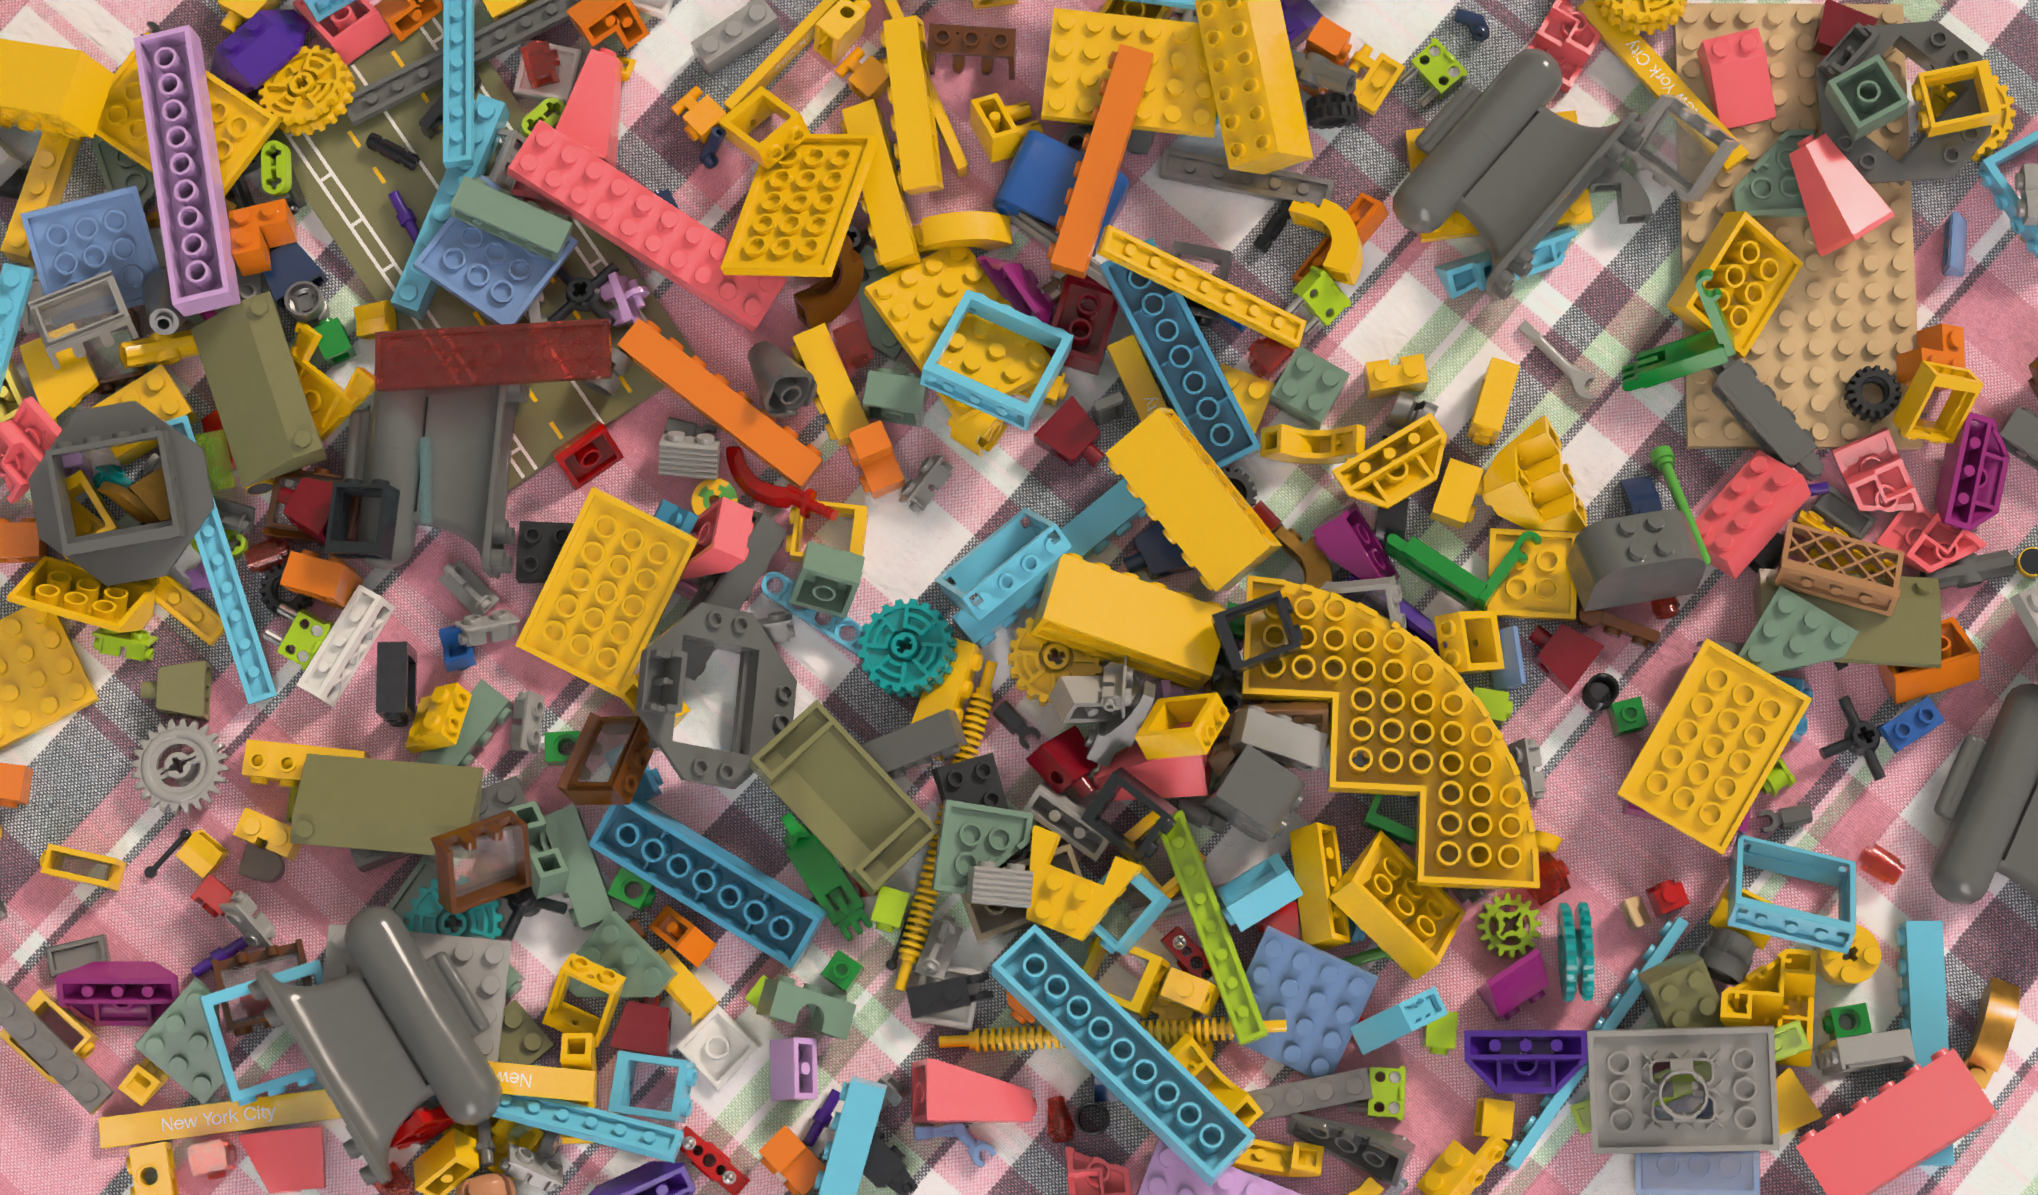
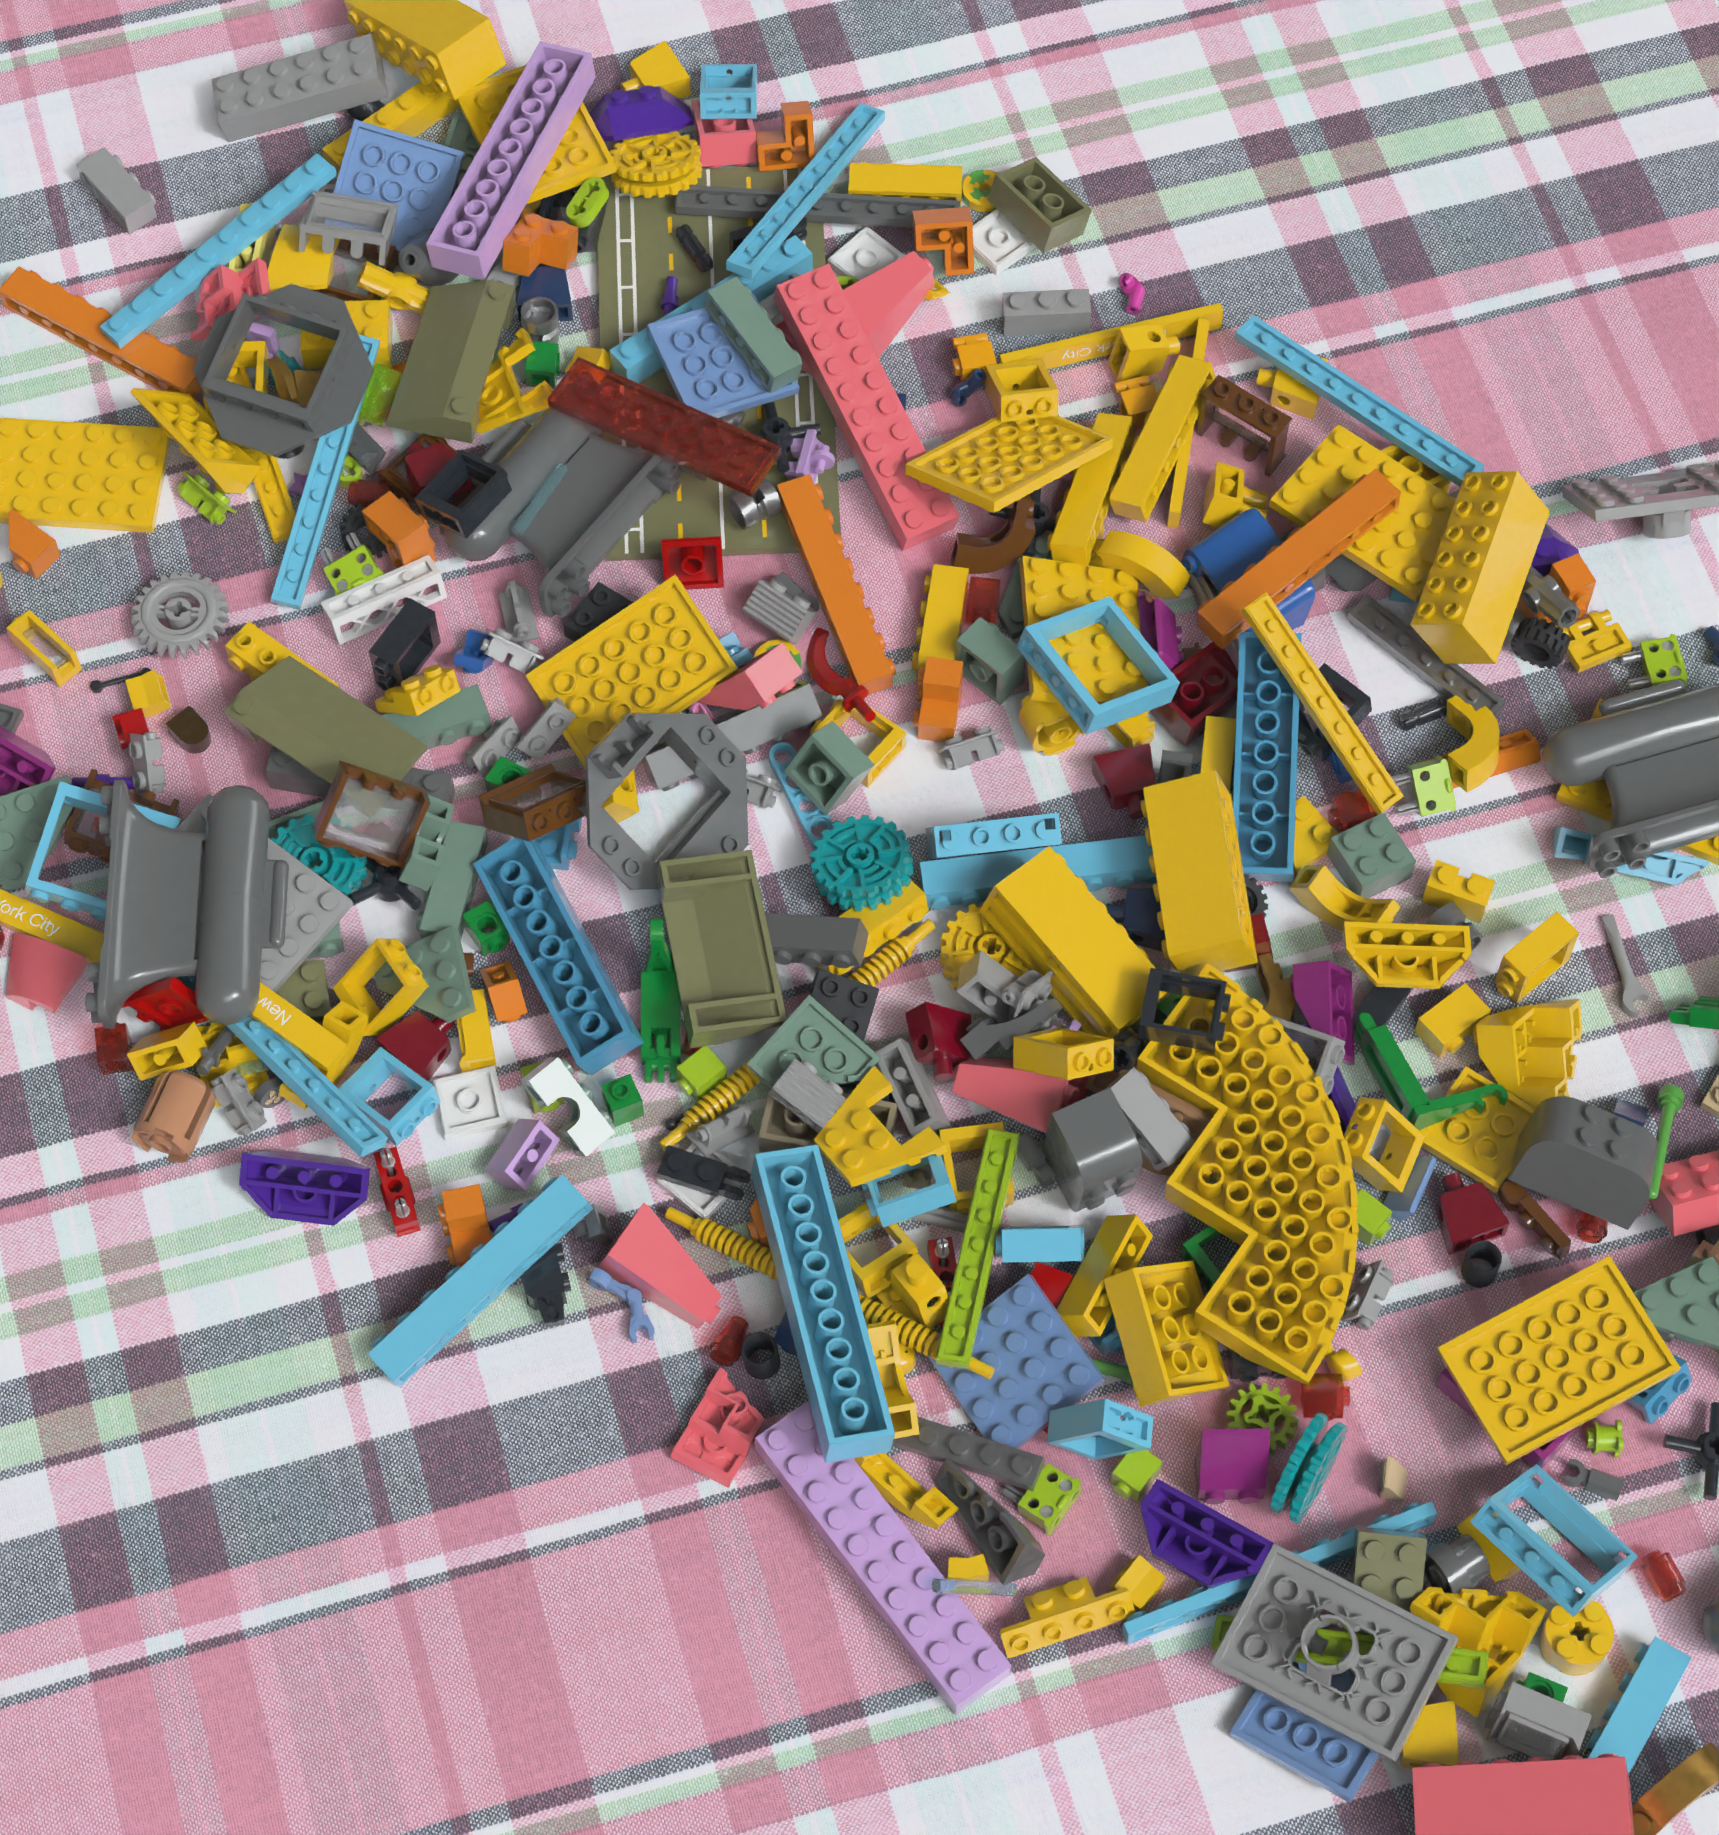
camera: 30 degrees right, 15 degrees down
(182, 690) = (226, 558): olive torso -> none
(258, 829) = (209, 703): yellow brick -> none
(260, 488) = (401, 438): black tile -> none
(540, 63) = (864, 246): clear red brick -> none
(563, 692) = (546, 729): none -> light grey hinge
(780, 380) = (898, 594): dark grey cone -> none
(1015, 723) = (917, 983): black bar -> none
(1123, 779) = (954, 1080): black window -> none
(1627, 716) = (1492, 1298): green brick -> none
(1667, 897) = (1431, 1478): red brick -> none

